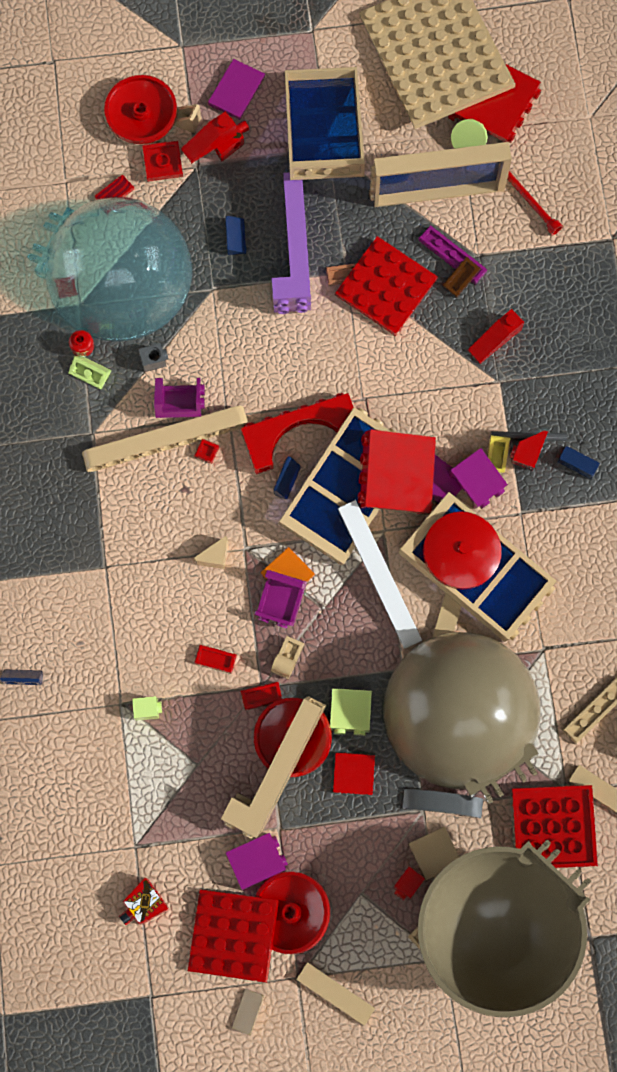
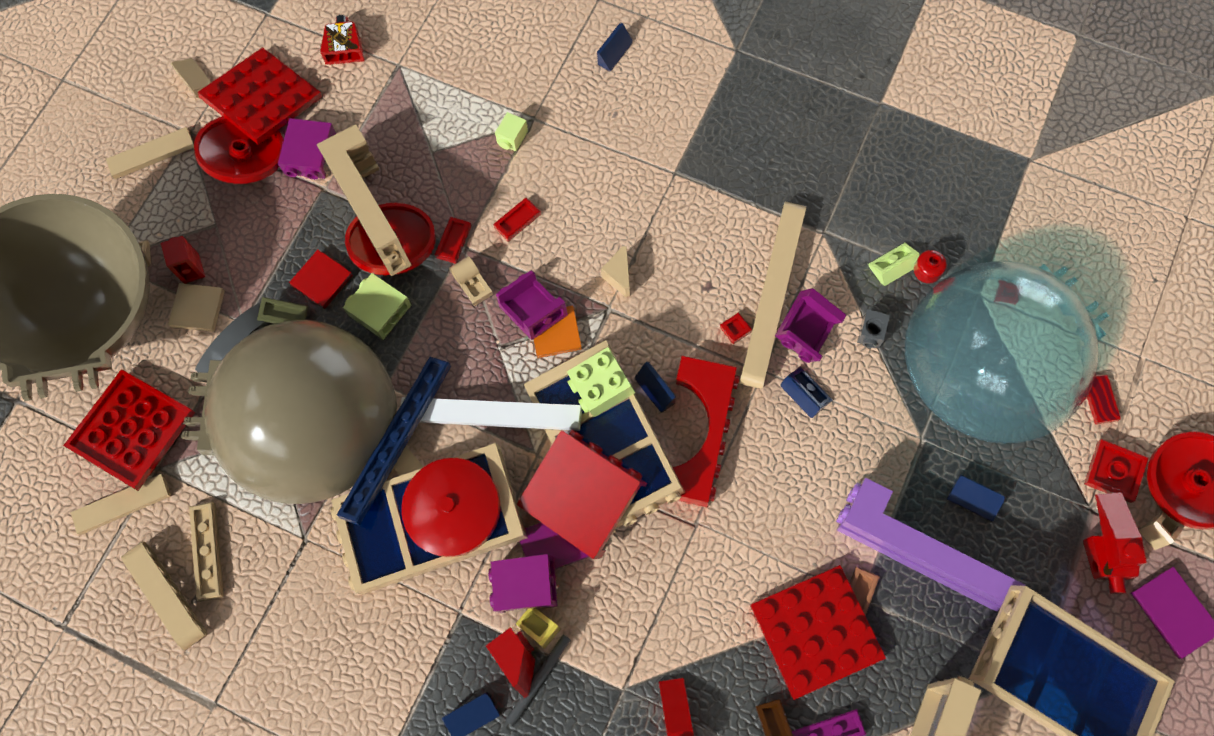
camera: 125 degrees right, 5 degrees down
(226, 378) = (805, 392): none -> dark blue slope
(315, 502) = (599, 382): none -> yellowish green brick
(399, 780) = (279, 311): none -> olive tile
(438, 625) = (394, 441): none -> dark blue tile

